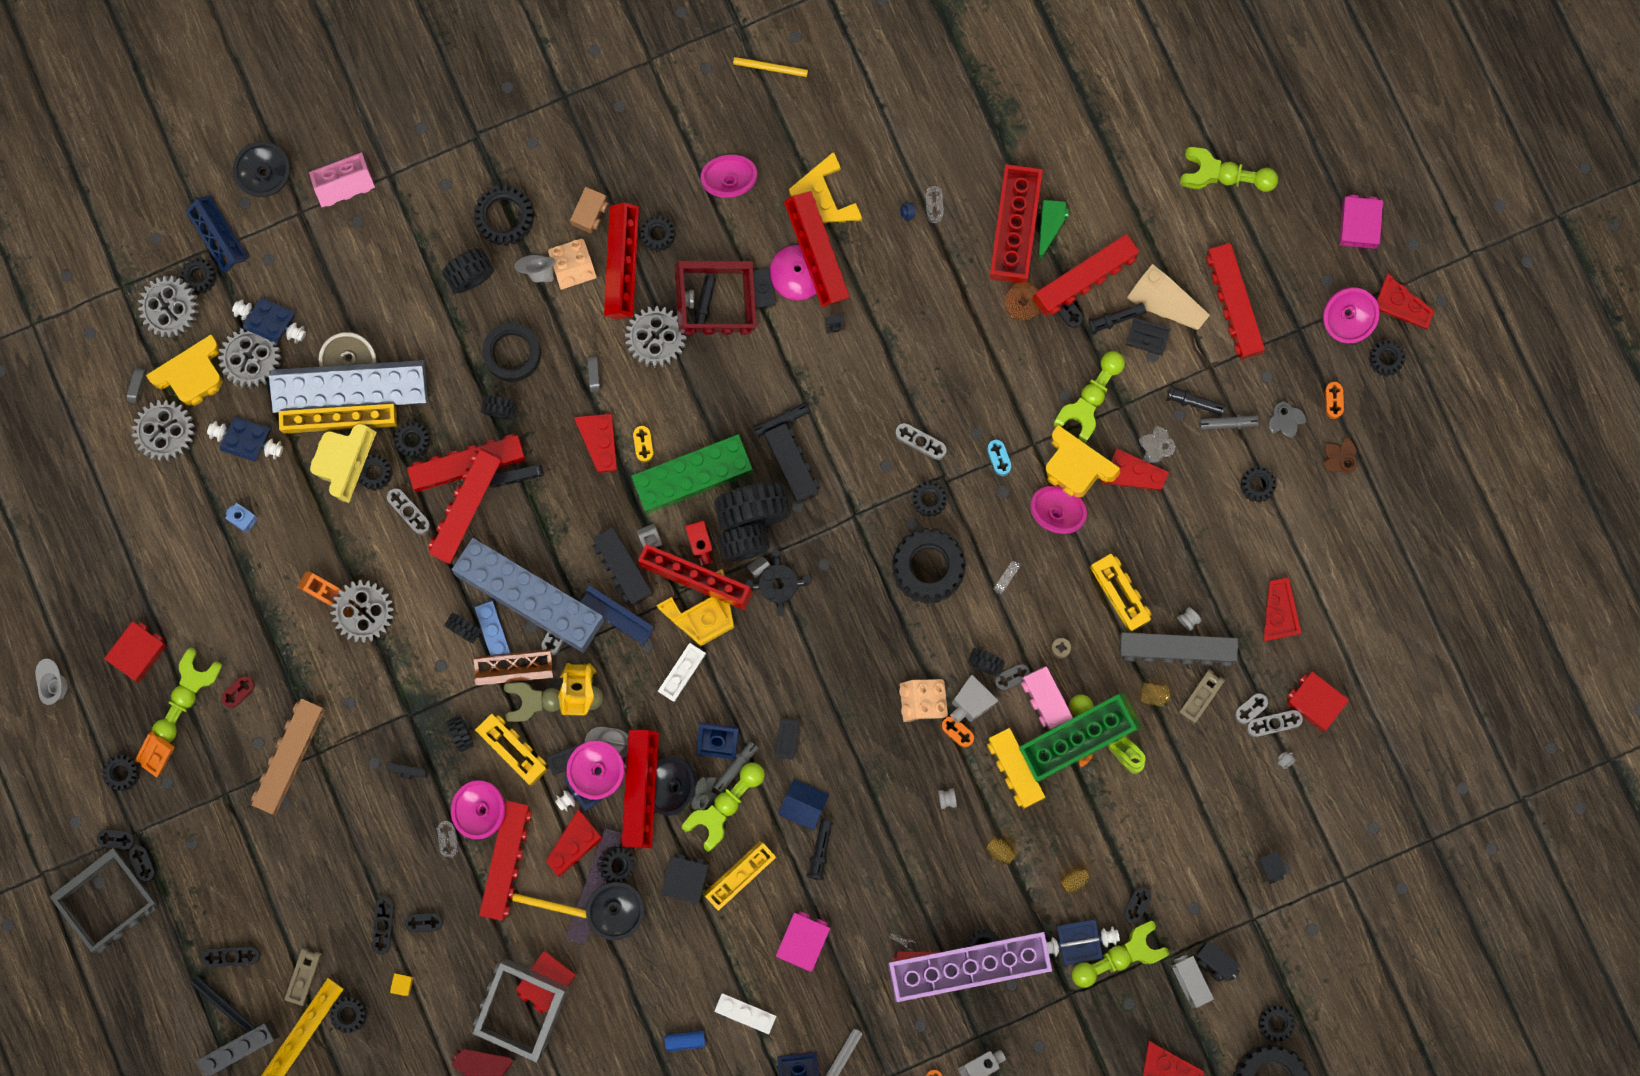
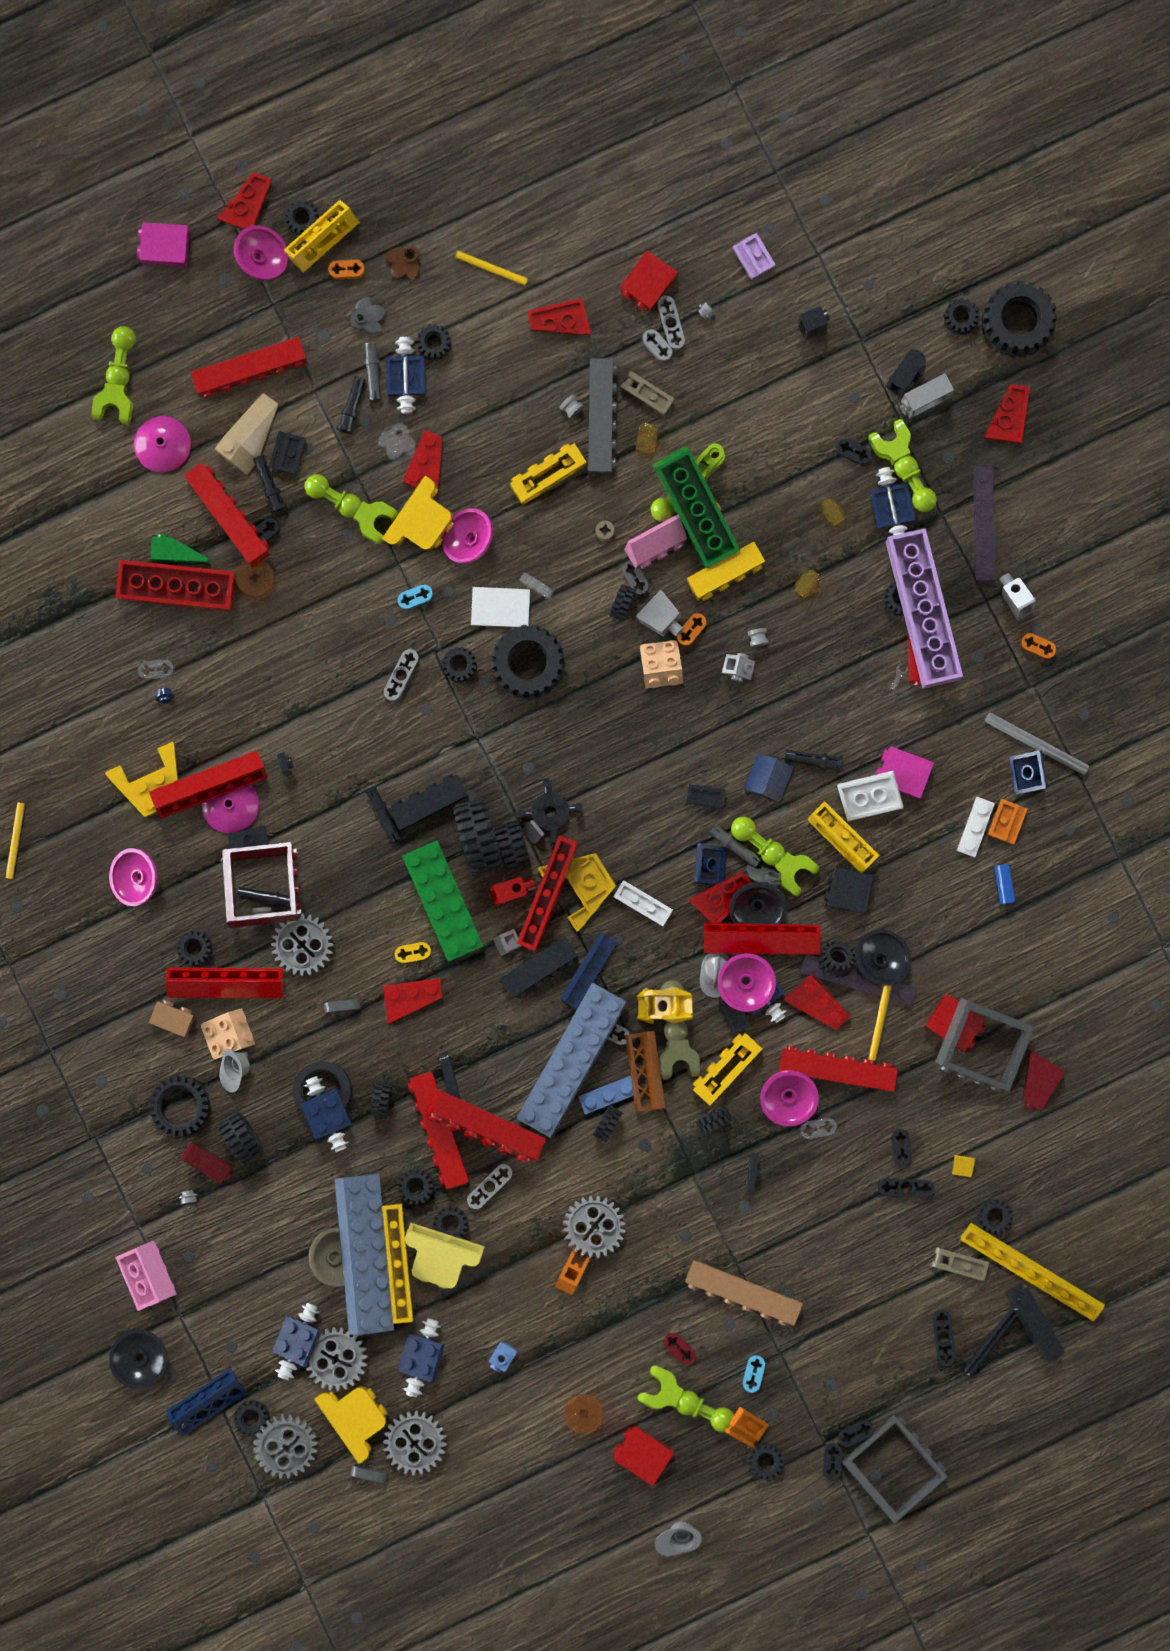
camera: 85 degrees left, 5 degrees up
(192, 595) = (595, 1412): none -> clear orange plate
(207, 769) = (749, 1372): none -> medium azure beam
(415, 222) = (188, 1197): none -> light grey plate
(447, 239) = (207, 1162): none -> dark red slope
(487, 353) = (326, 1114): none -> dark blue plate
(680, 744) = (716, 900): none -> red wing
(749, 1046) = (1007, 821): none -> orange plate
(780, 905) = (870, 796): none -> white tile
(917, 777) = (738, 667): none -> light grey brick
(986, 541) = (500, 607): none -> white tile
(1058, 1037) = (984, 524): none -> clear purple plate
(1159, 228) = (171, 453): none -> dark pink dish
(1224, 455) = (405, 375): none -> dark blue plate
(1334, 544) = (492, 268): none -> yellow bar
(1342, 810) = (754, 256): none -> lavender plate
(1367, 375) = (321, 236): none -> yellow brick

